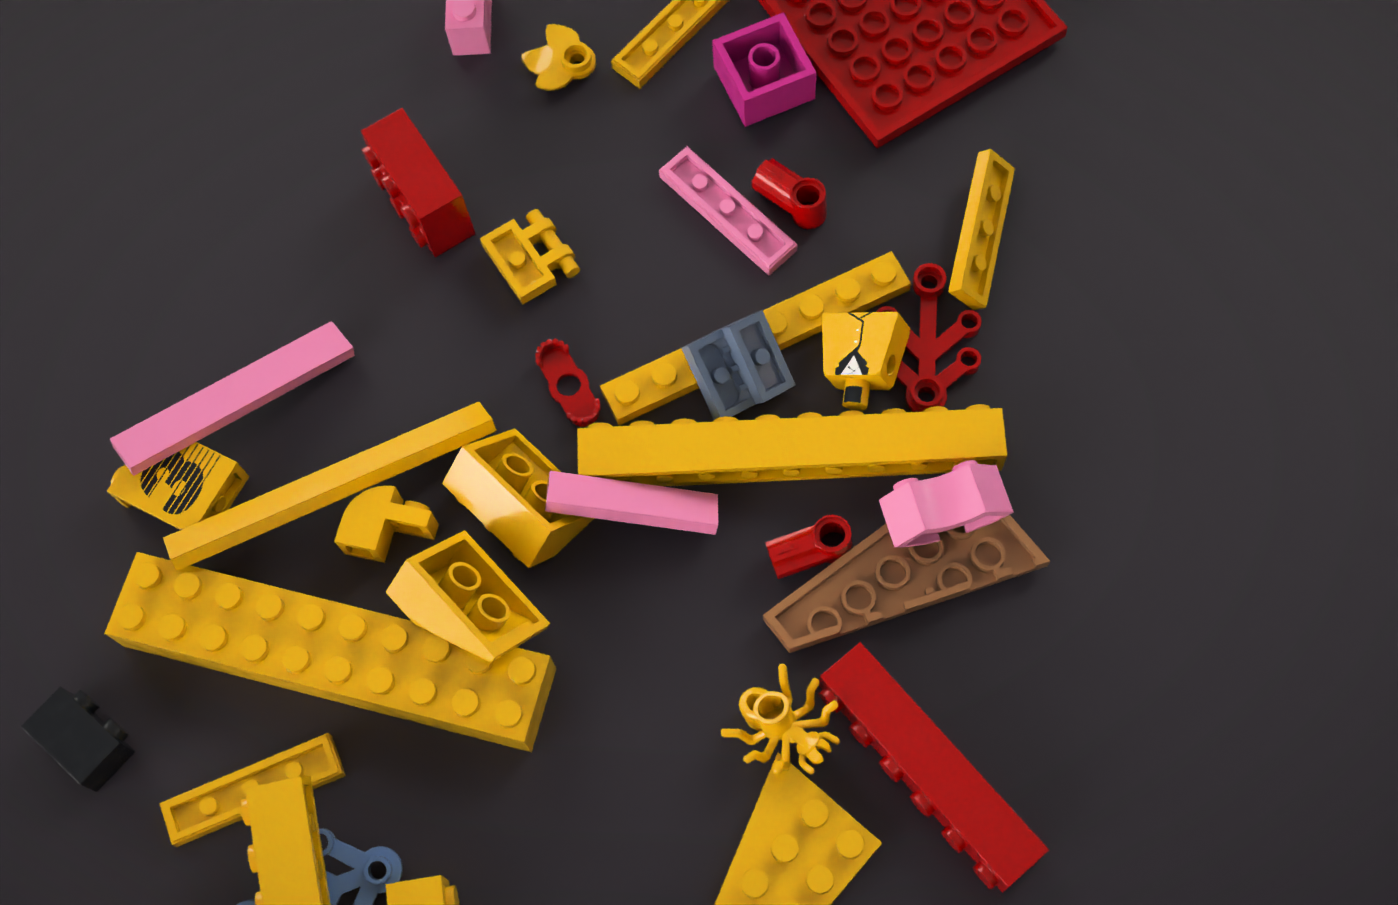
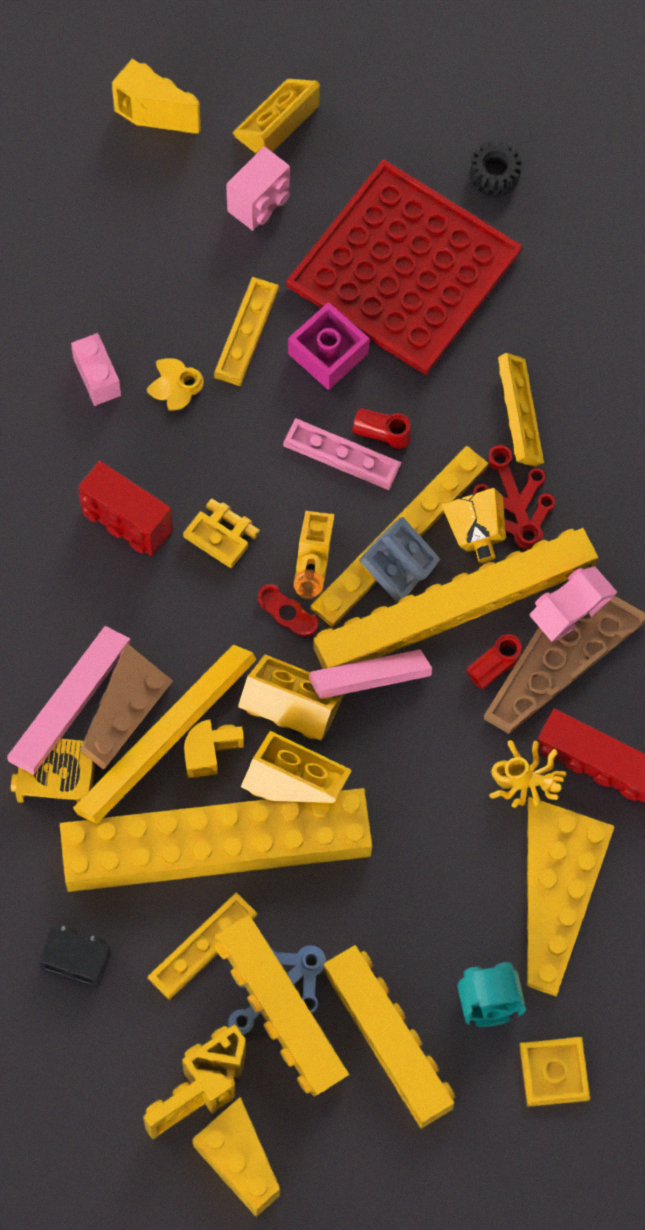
camera: 30 degrees left, 0 degrees up
(302, 426) = (127, 700): none -> medium nougat wing
(627, 319) = (313, 553): none -> yellow plate

